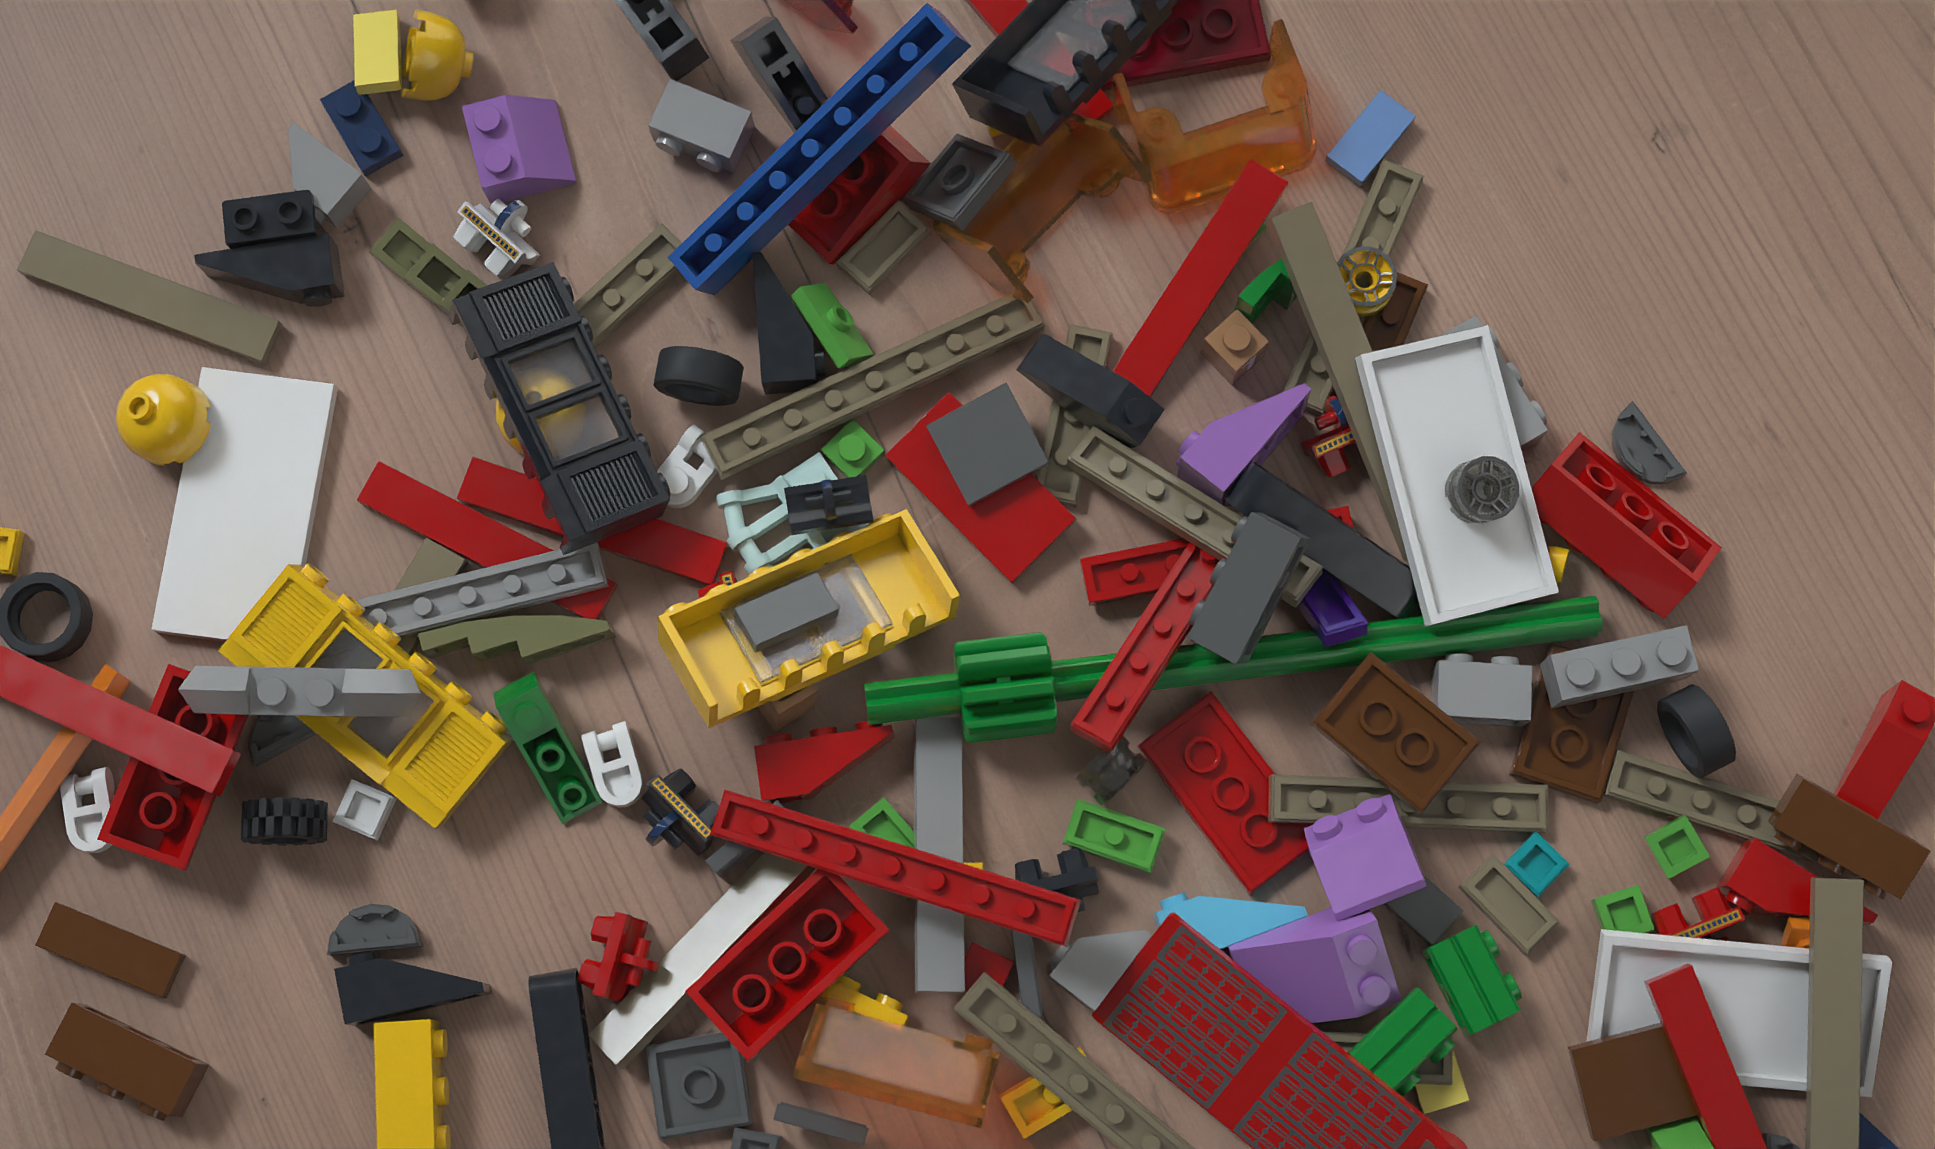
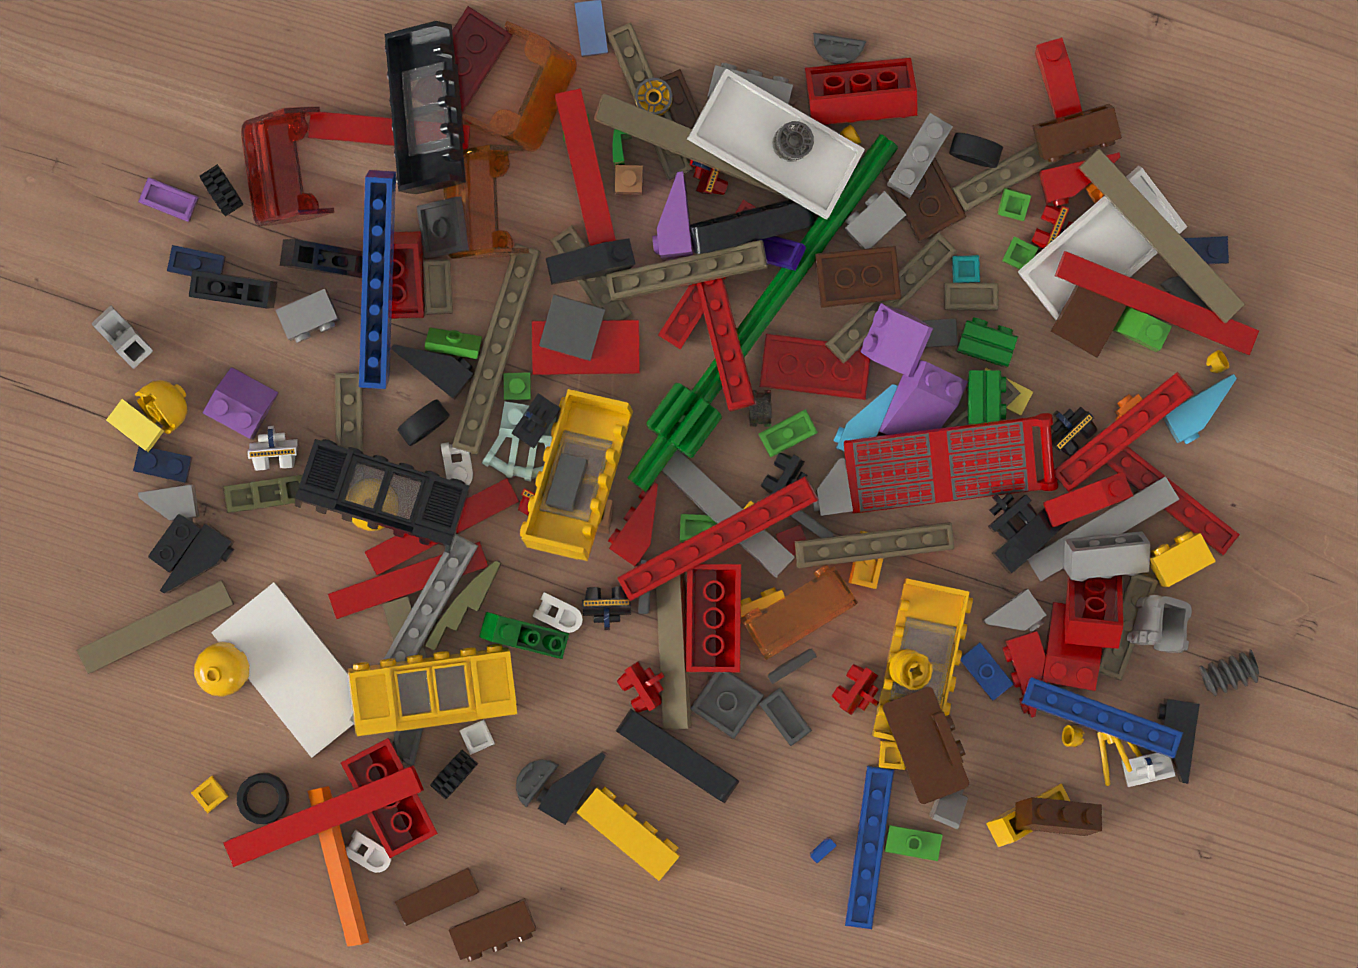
camera: 50 degrees left, 10 degrees up
(301, 691) = (409, 716): light grey brick -> none
(1247, 587) = (741, 281): dark grey brick -> none

